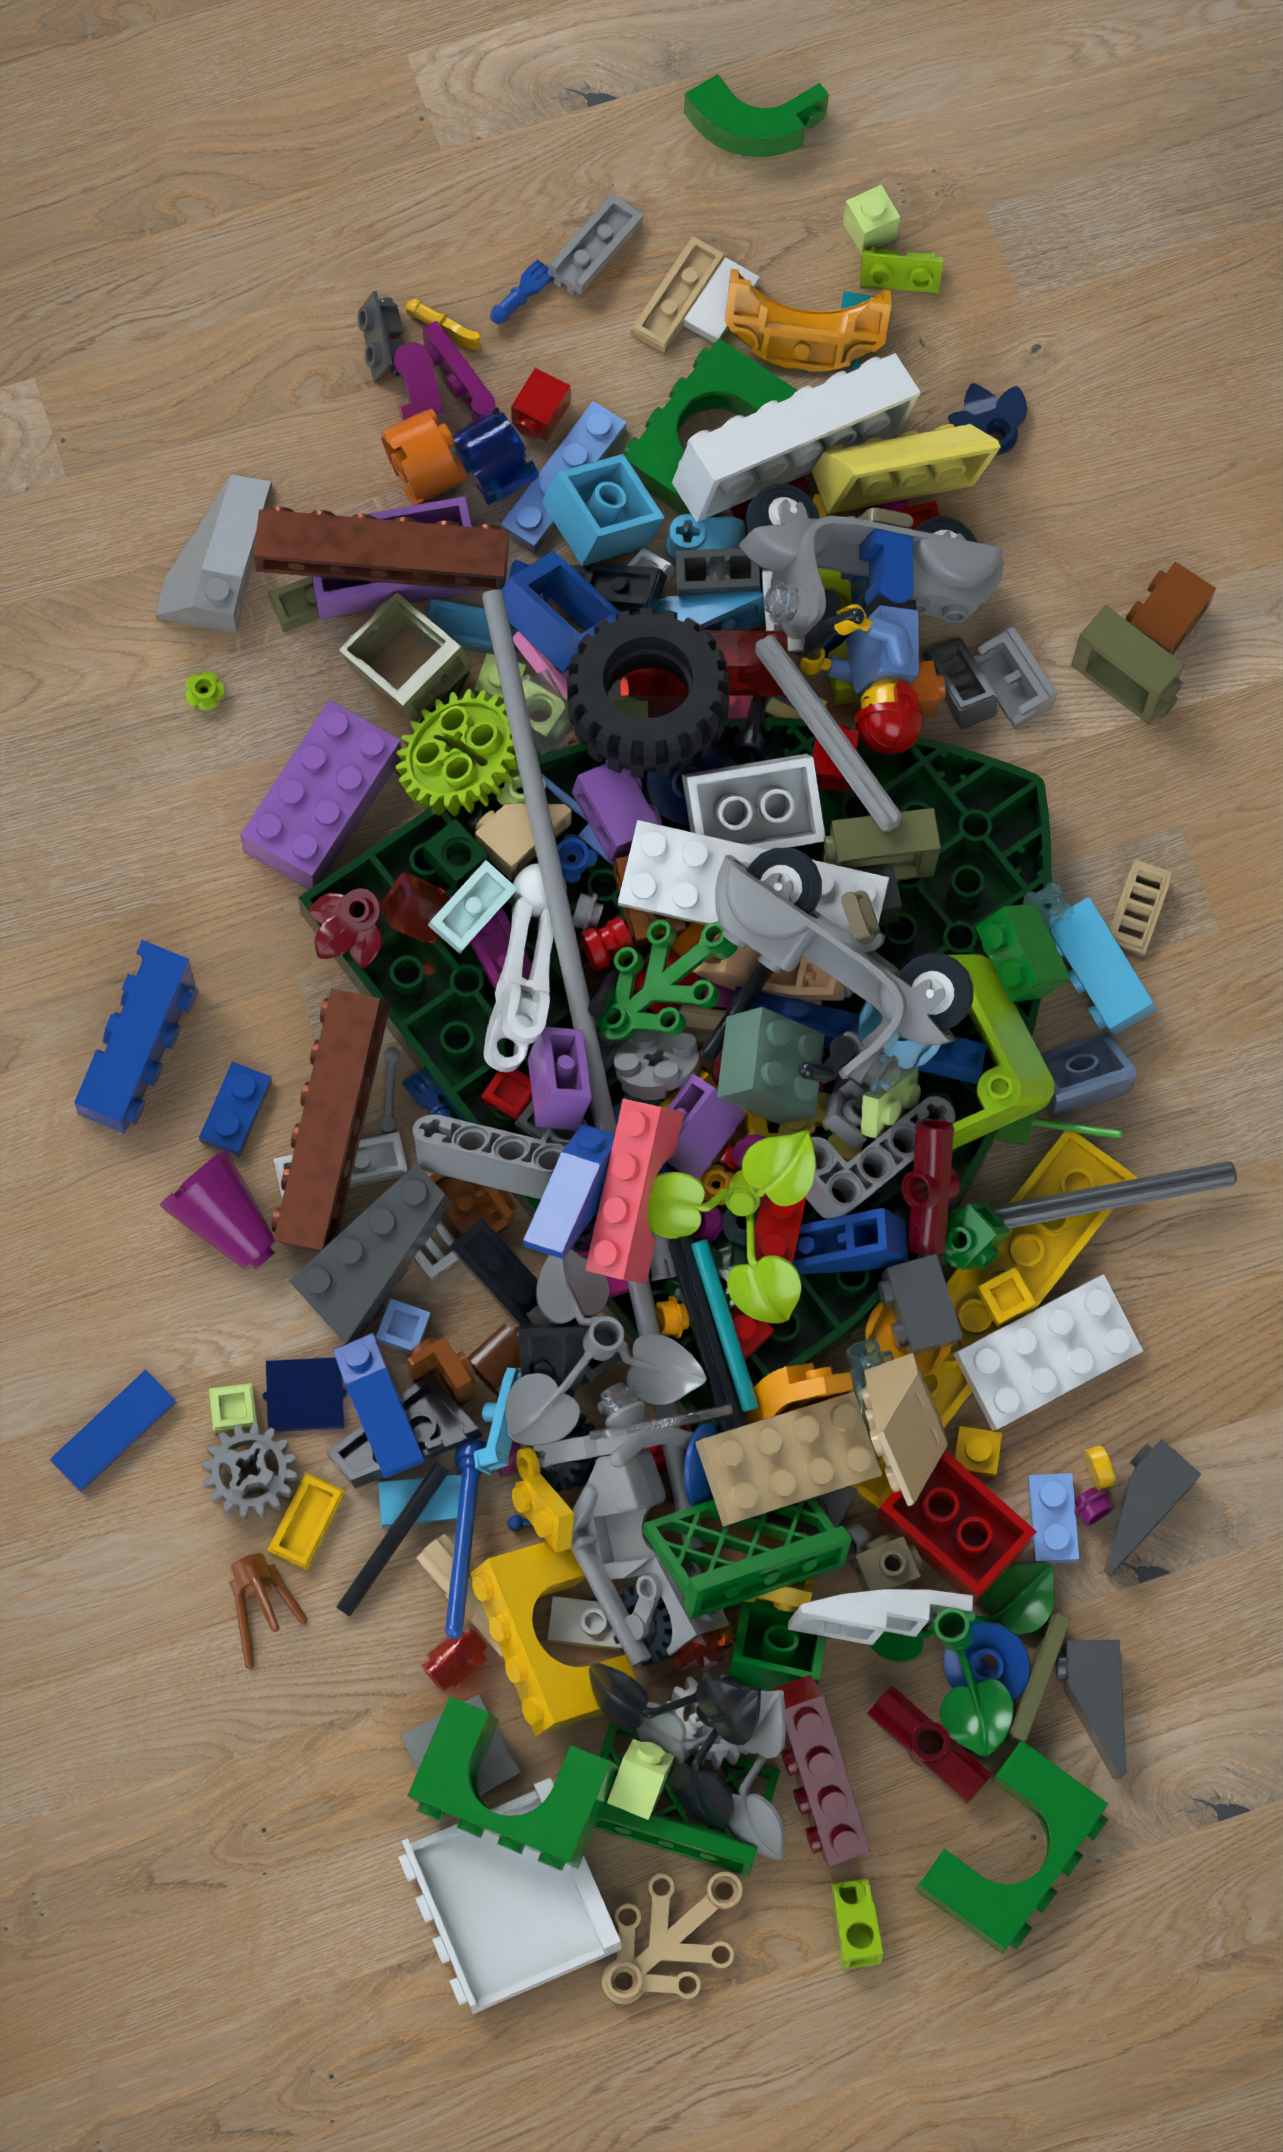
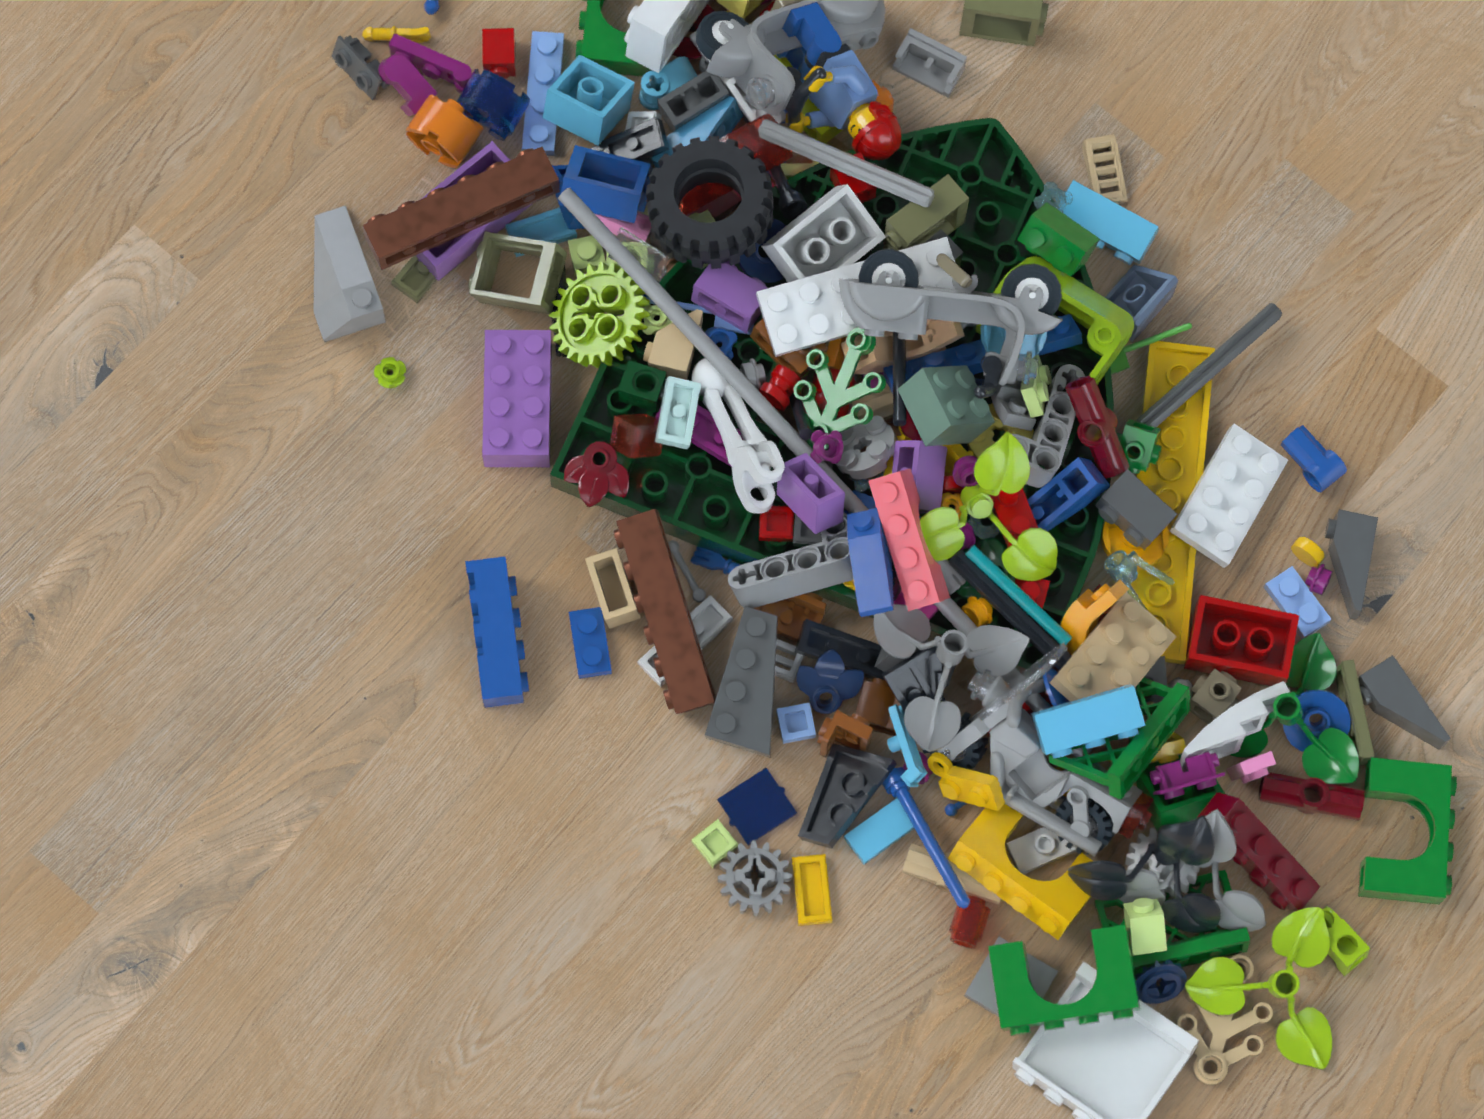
camera: 30 degrees left, 0 degrees up
(113, 1431) = (644, 905): blue tile -> none
(222, 1212) = (628, 715): magenta cone -> none
(254, 1578) = (803, 947): dark orange plant -> none
(289, 1061) = (612, 588): none -> tan brick
(379, 1405) = (816, 783): blue slope -> none
(392, 1539) = (878, 866): black bar -> none
(469, 1298) = (830, 677): none -> dark blue plate
(605, 1851) = (1172, 982): none -> dark blue gear
(614, 1048) = (835, 444): none -> magenta plate
(707, 1509) = (1088, 721): none -> medium azure brick
(769, 1633) = (1173, 780): none -> magenta hinge
(812, 1898) = (1306, 941): none -> lime plant
(877, 1673) = (1252, 768): none -> bright pink plate
(903, 1424) = (1173, 592): tan slope -> none
(972, 705) = (913, 95): dark grey slope -> none
(978, 1450) = (1222, 585): yellow plate -> none
(1006, 1296) = (1182, 474): yellow plate -> none
(1174, 1377) = (1319, 466): none -> blue piece

